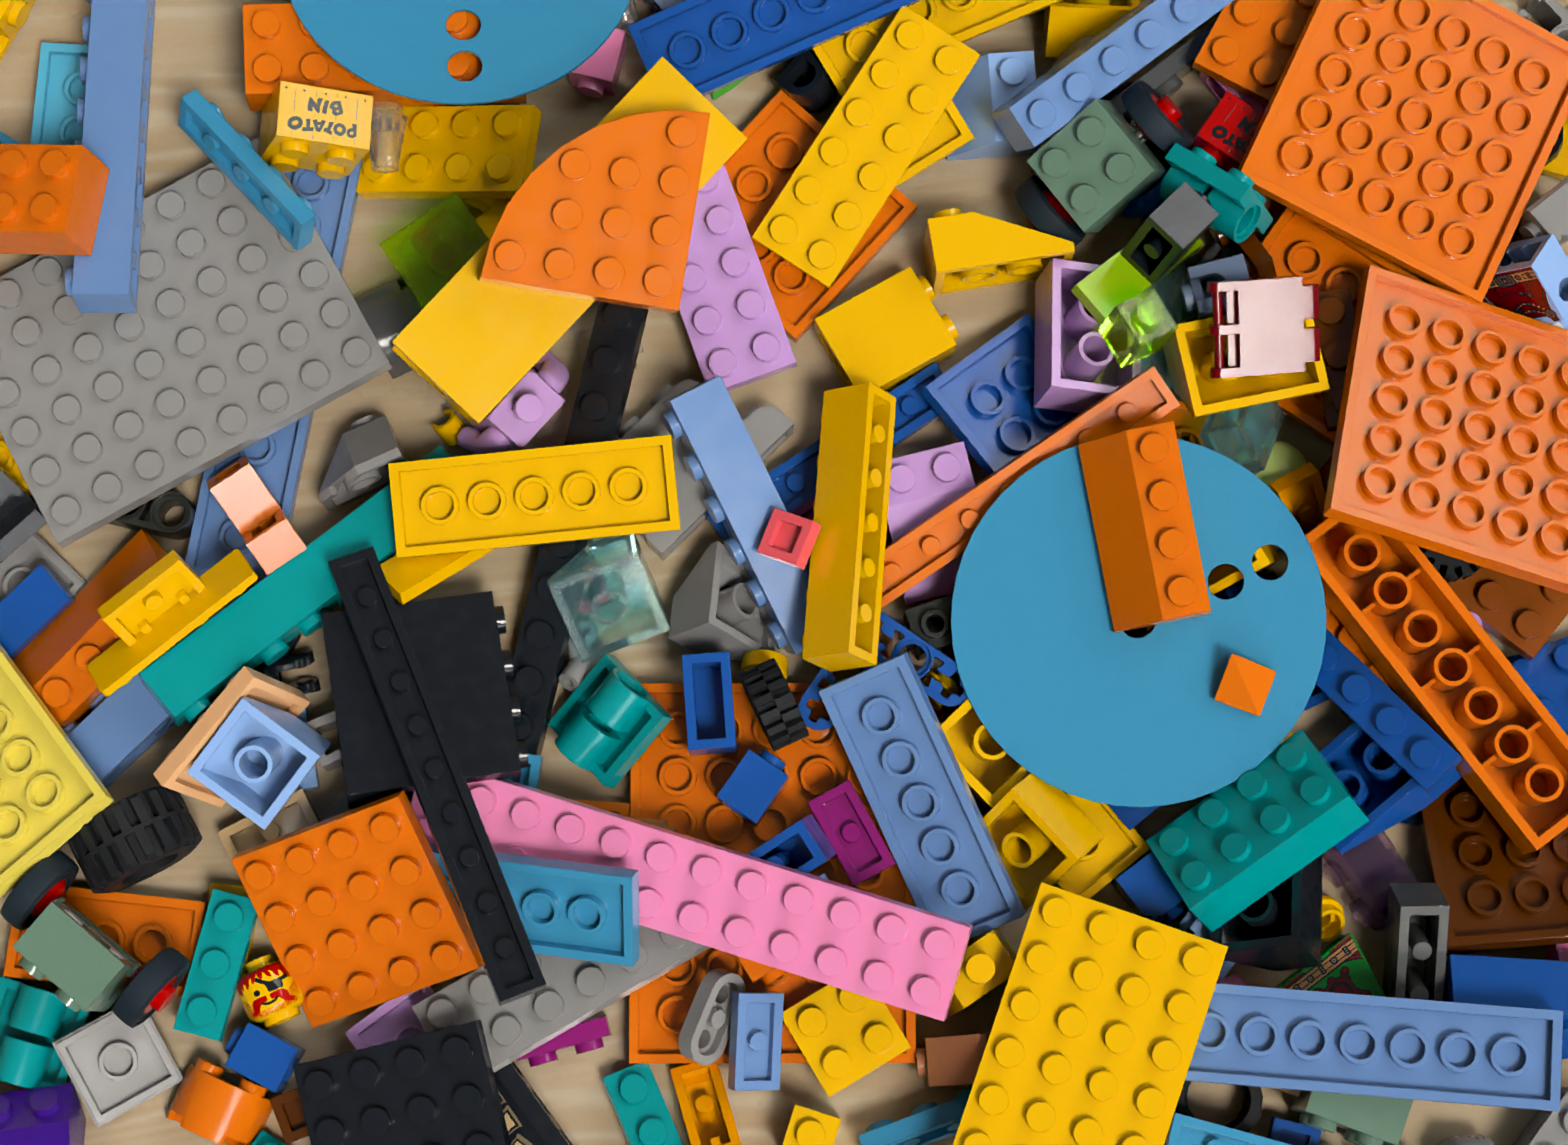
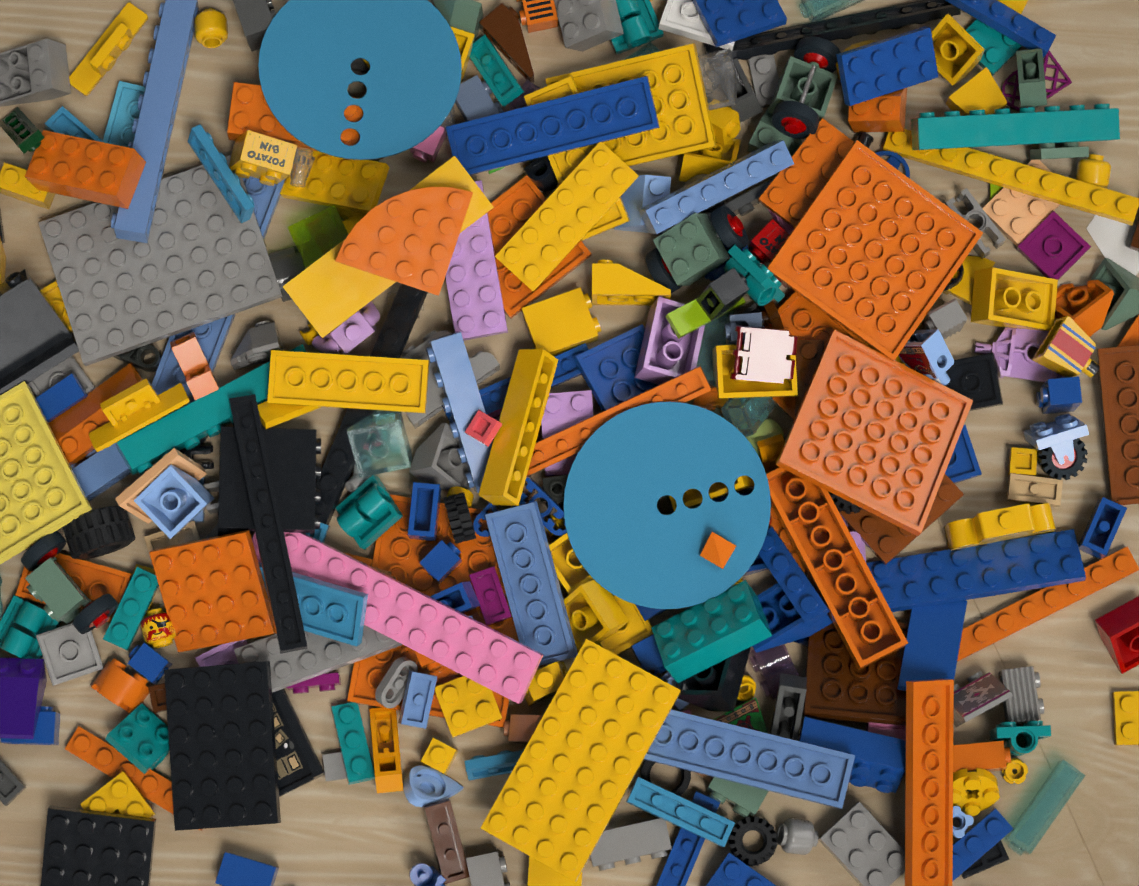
camera: 15 degrees right, 0 degrees up
(1137, 328) = (696, 343): clear neon green brick -> none
(1144, 527) = (678, 454): orange slope -> none

